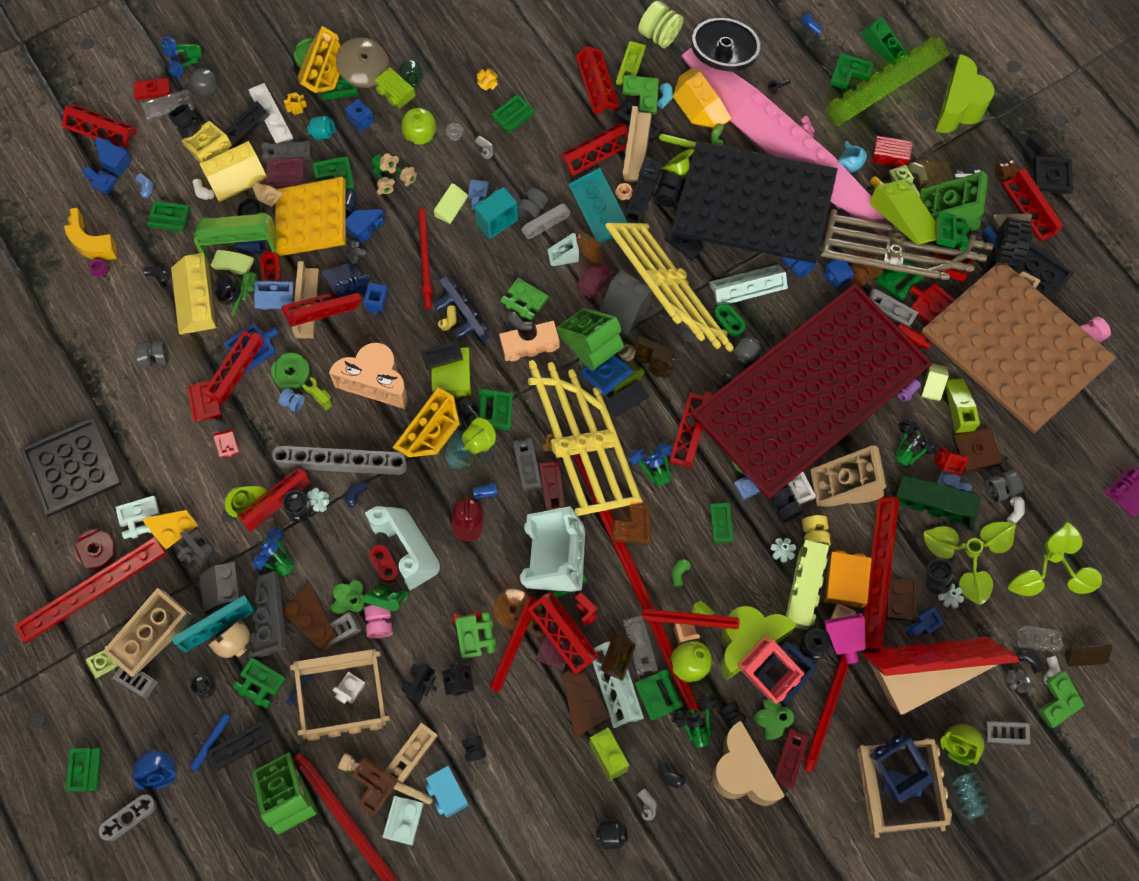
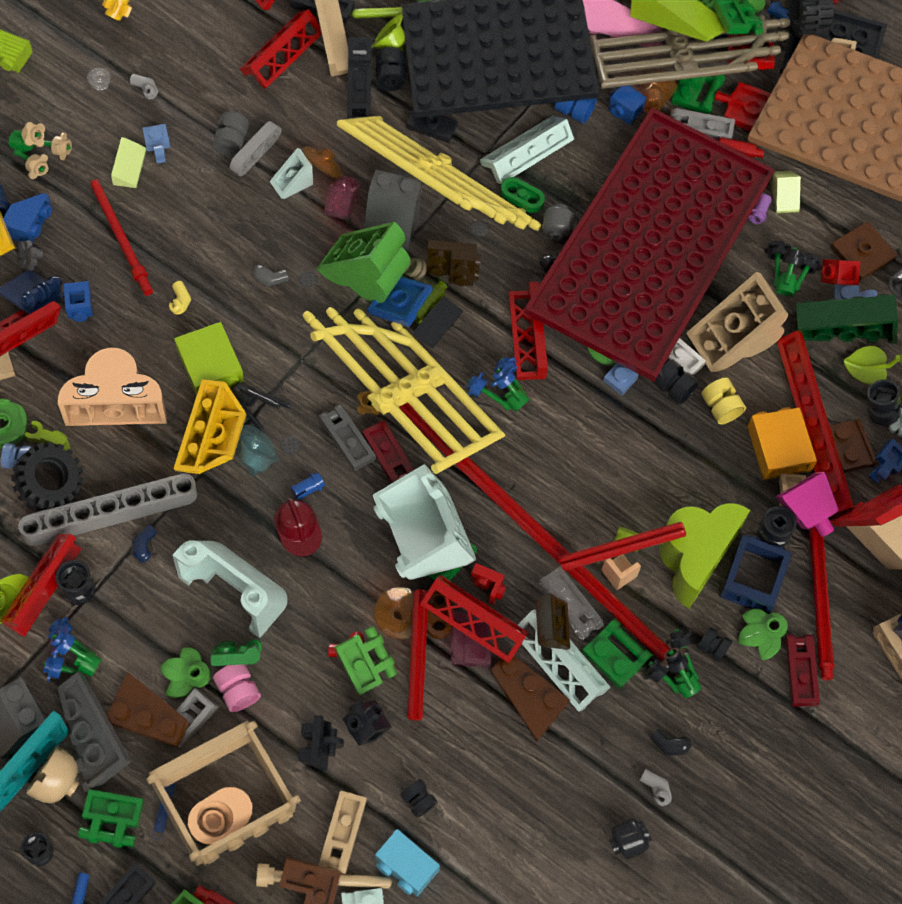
camera: 25 degrees left, 5 degrees down
(318, 499) = (100, 566): light aqua plant -> none
(321, 419) = (61, 462): none -> black tyre
(330, 709) = (219, 815): none -> light nougat piece
(349, 688) = (231, 777): white bracket -> none
(384, 564) = (215, 616): red plate -> none
(411, 72) = (18, 23): clear green head -> none
(418, 126) = (51, 84): lime cylinder -> none
(442, 355) = (192, 339): black plate -> none
(453, 297) = (188, 273): dark blue plate -> none
(478, 436) = (277, 420): lime piece -> none
(496, 213) = (191, 155): teal brick -> none
(500, 408) = (288, 382): green plate -> none
(513, 114) = (164, 37): green plate -> none
(515, 347) = (278, 305): light nougat arch -> none
(527, 295) = (266, 241): bright green plate -> none
(597, 203) = (310, 110): teal tile -> none
(608, 754) = (589, 741): lime brick -> none
(624, 187) = (336, 83): light nougat plate -> none
(636, 530) = (511, 466): clear orange plate -> none
(677, 571) = (580, 500): bright green arm -> none
(691, 661) = (641, 598): lime cylinder -> none
(721, 523) = (608, 428): green plate -> none
(744, 770) = (757, 701): tan brick -> none
(758, 656) = (722, 559): coral window -> none
(783, 549) = (692, 435): light aqua plant -> none
(806, 584) = (737, 459): yellowish green wedge -> none
(962, 406) = (828, 208): lime slope -> none

